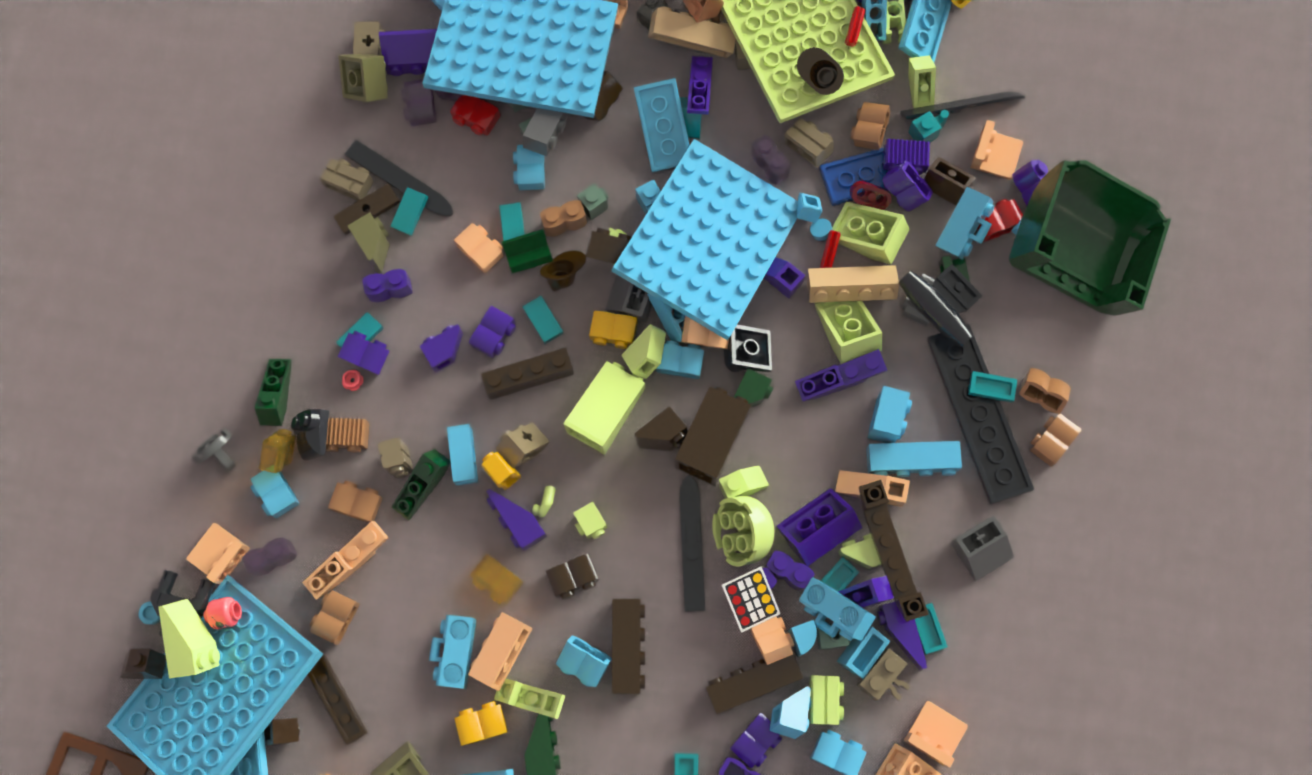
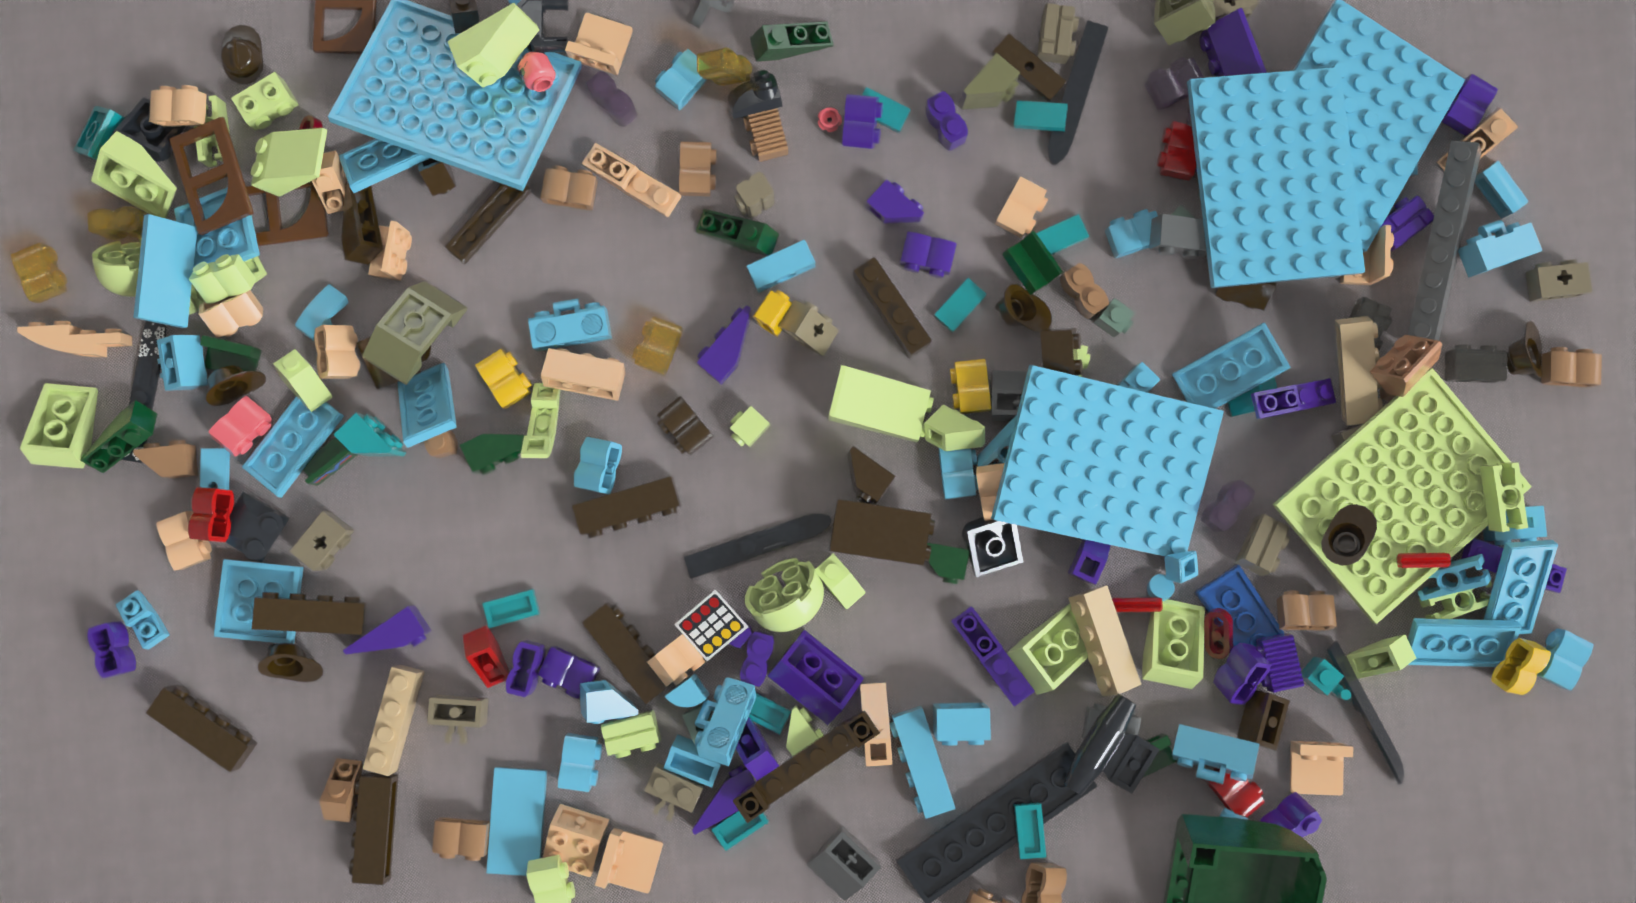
camera: 70 degrees right, 10 degrees up
(547, 501) = (759, 373): yellowish green arm -> none

